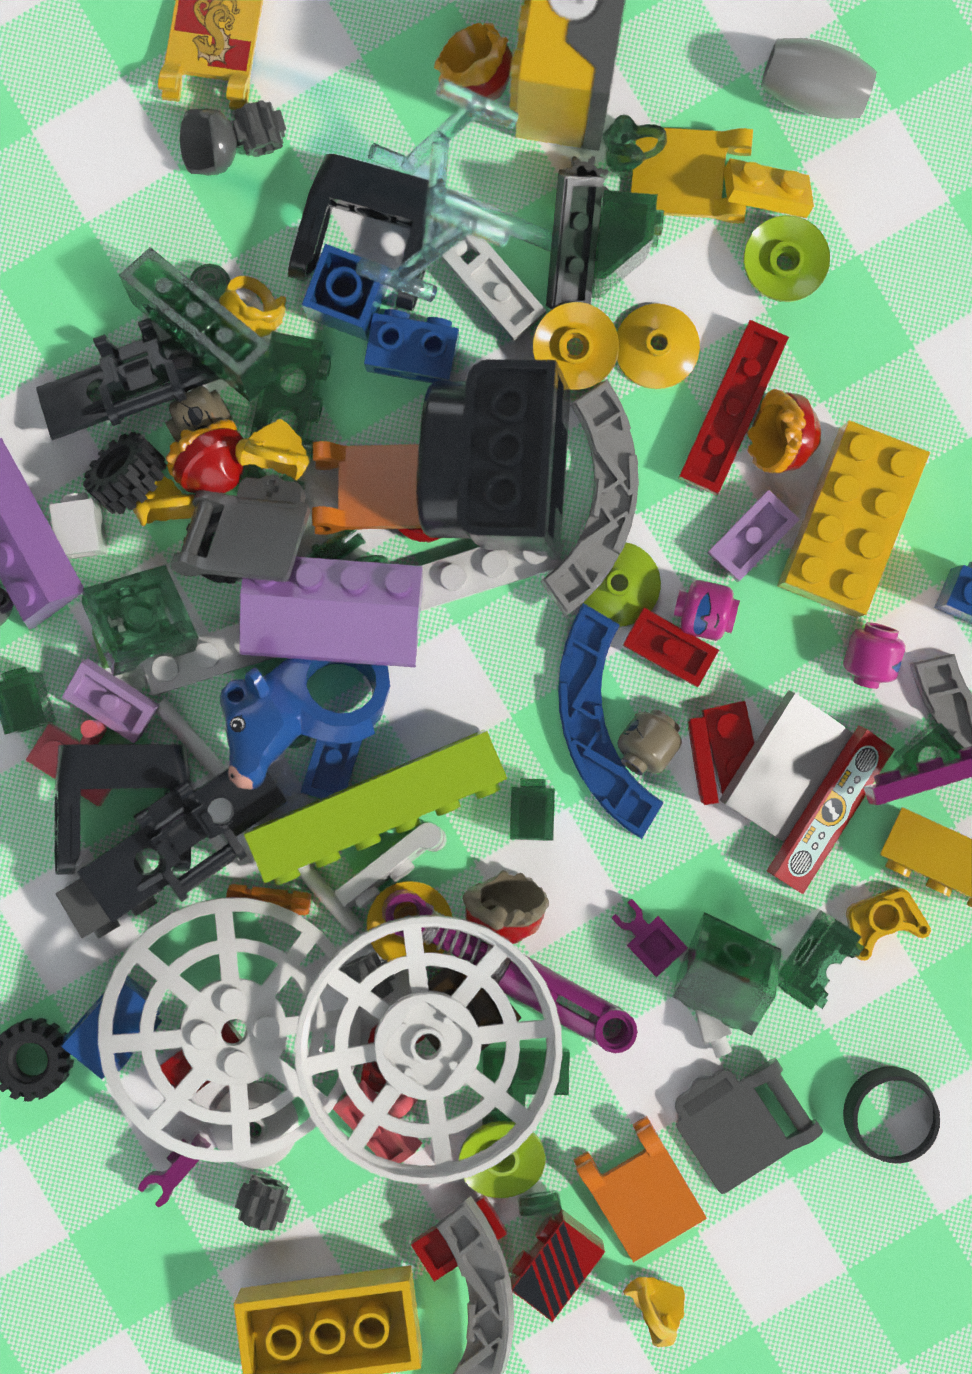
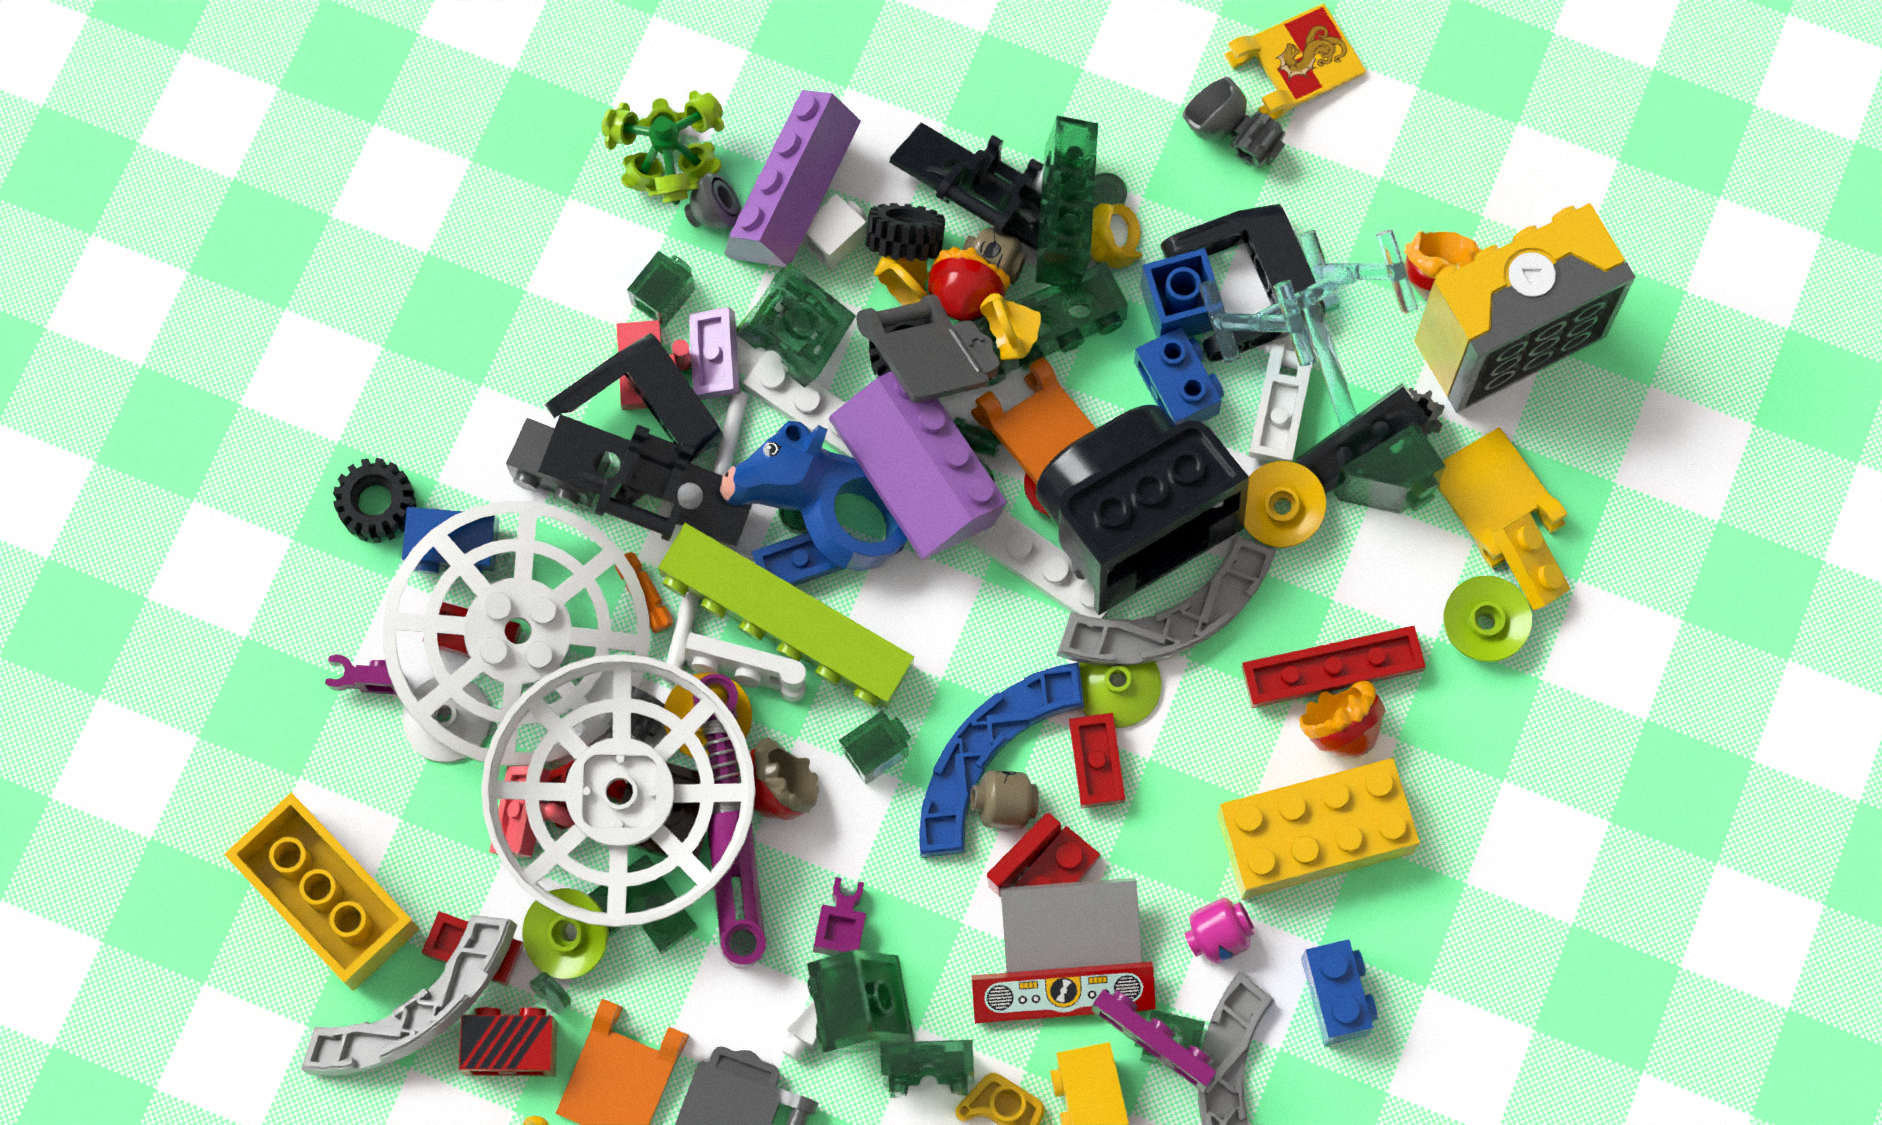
camera: 50 degrees right, 15 degrees down
(262, 1202) = (388, 765): dark grey gear -> none
(621, 154) = (1479, 415): clear green piece -> none
(657, 367) = (1330, 592): yellow dish -> none
(707, 610) = (1150, 765): dark pink head -> none
(753, 536) = (1241, 760): lavender plate -> none
(818, 78) = (1650, 534): light grey piece -> none

